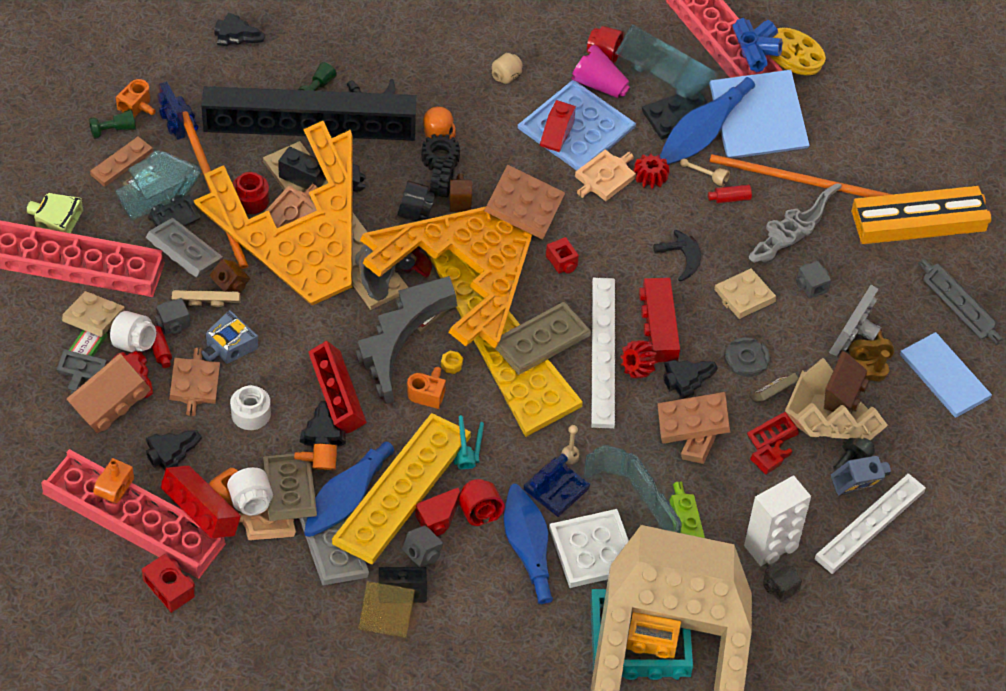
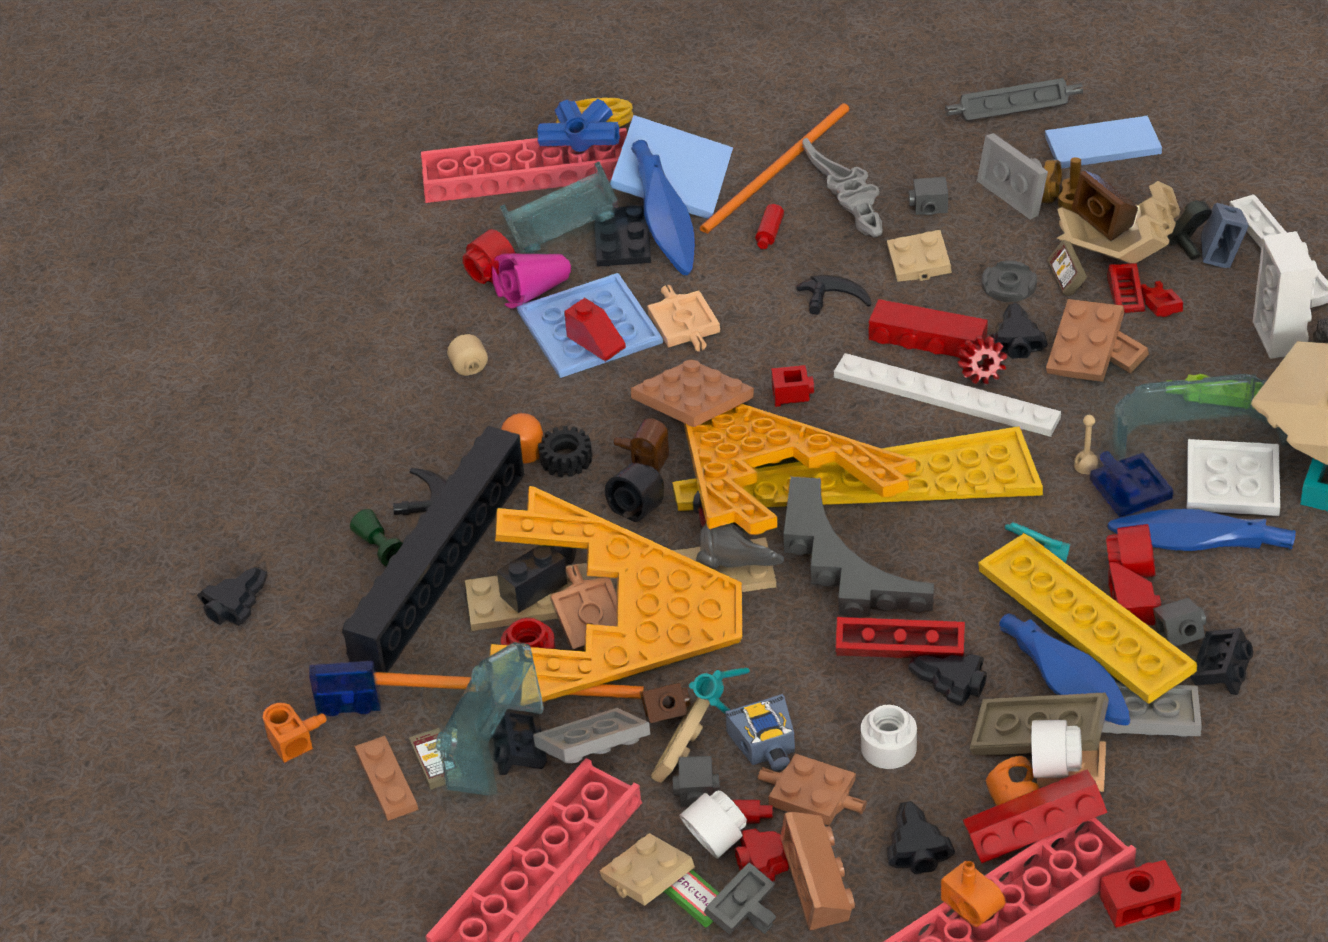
camera: 60 degrees left, 10 degrees down
(56, 212) = (446, 868): yellowish green torso -> none
(121, 121) = (320, 751): dark green piece -> none
(240, 293) = (711, 686): none -> teal plant
(323, 457) = (1007, 679): orange piece -> none
(386, 609) = (1261, 681): clear yellow tile -> none
(431, 388) = (937, 558): orange piece -> none
(441, 176) = (613, 450): black tyre -> none
(451, 362) = (901, 528): yellow tile -> none
(542, 337) = (911, 429): dark tan tile -> none
(651, 170) = (701, 276): red gear -> none
(718, 175) = (736, 227): tan hinge -> none
(920, 214) = (880, 94): light orange brick -> none

